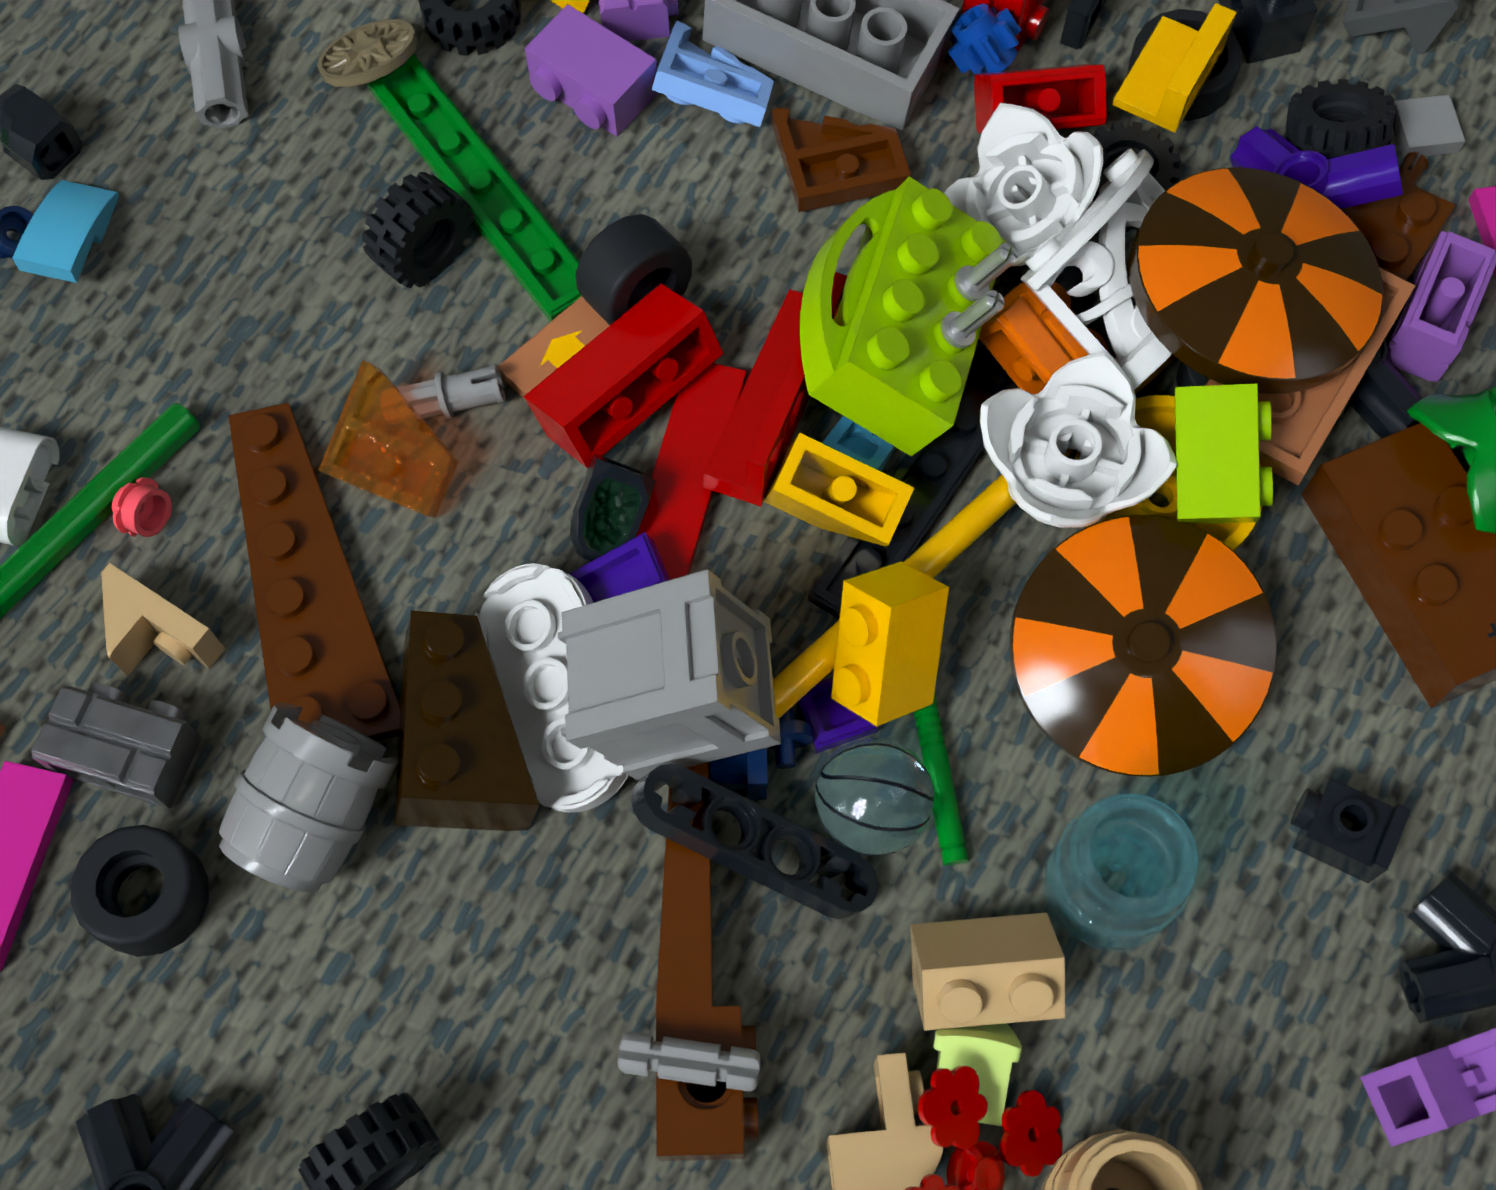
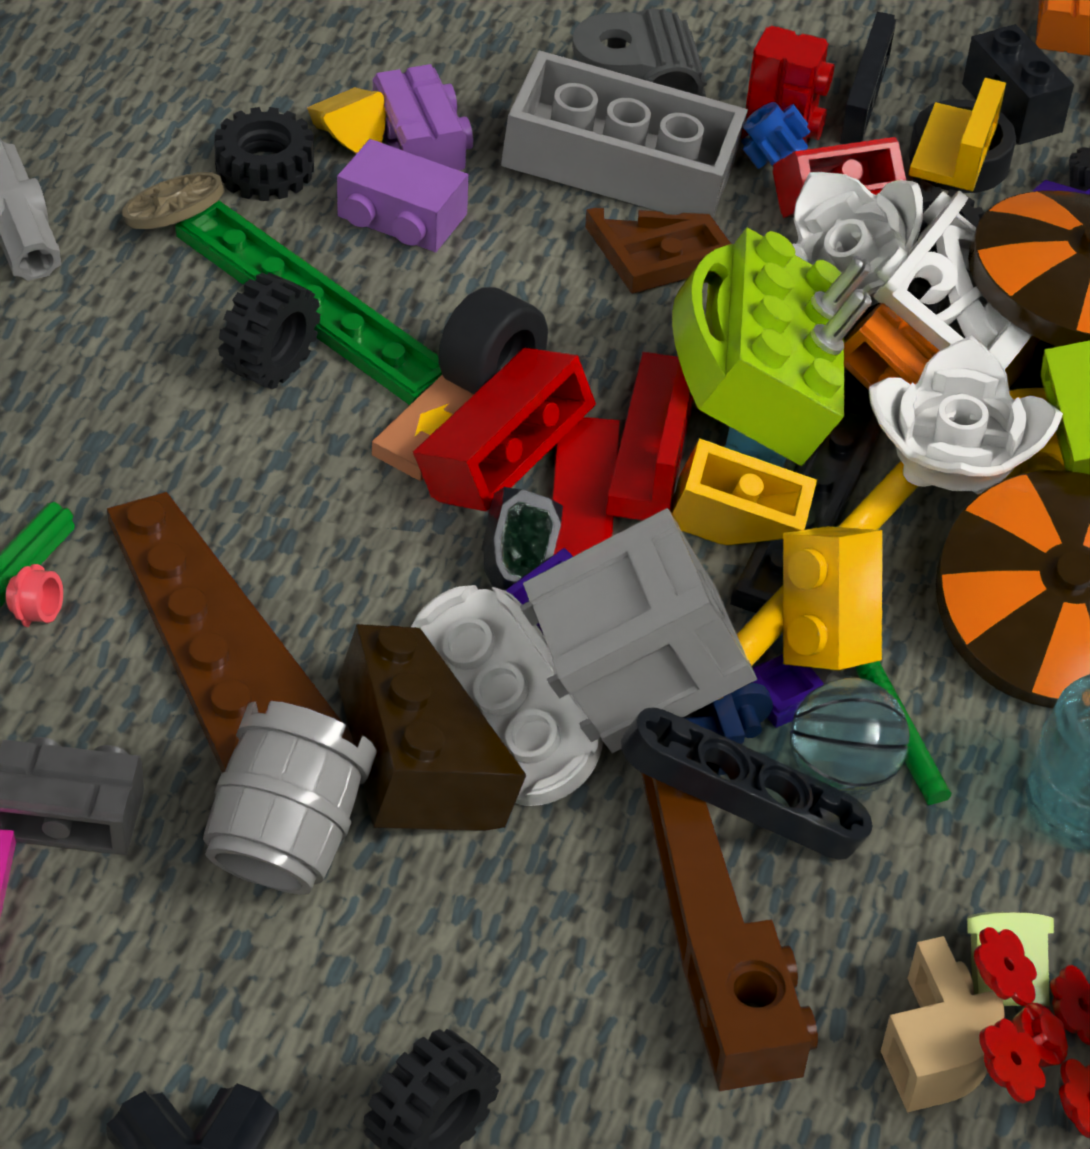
camera: 15 degrees left, 20 degrees down
(110, 863) = (128, 953): black tyre -> none
(140, 618) = (74, 679): tan slope -> none
(388, 446) = (282, 516): clear orange wing -> none
(455, 392) = (324, 469): light grey axle -> none
(689, 1061) = (738, 963): light grey axle -> none
(711, 81) = (522, 193): light blue wing -> none
(987, 971) = (1000, 866): tan brick -> none

